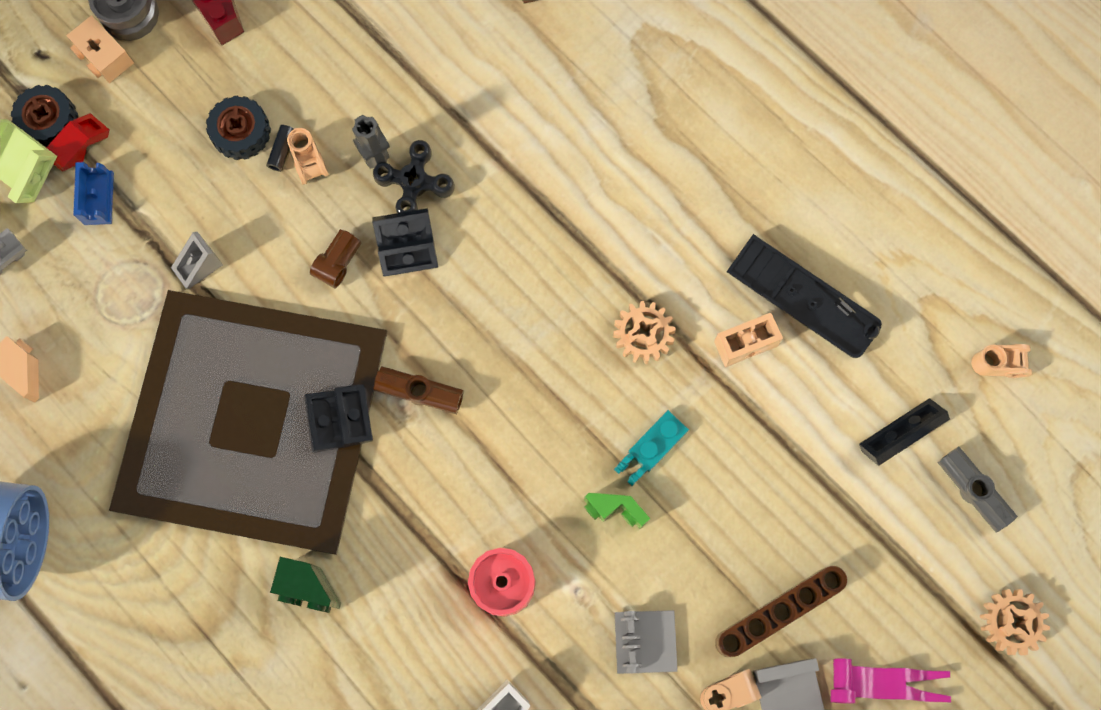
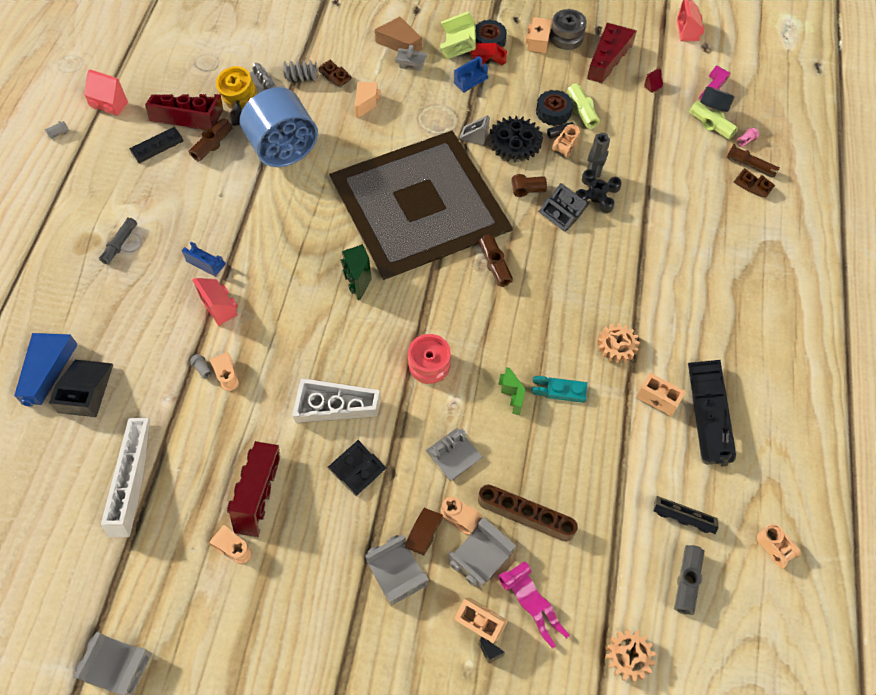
camera: 50 degrees right, 15 degrees down
(249, 242) = (515, 138): none -> black gear
(266, 89) = (583, 106): none -> yellowish green piece
(338, 418) = (451, 234): black slope -> none

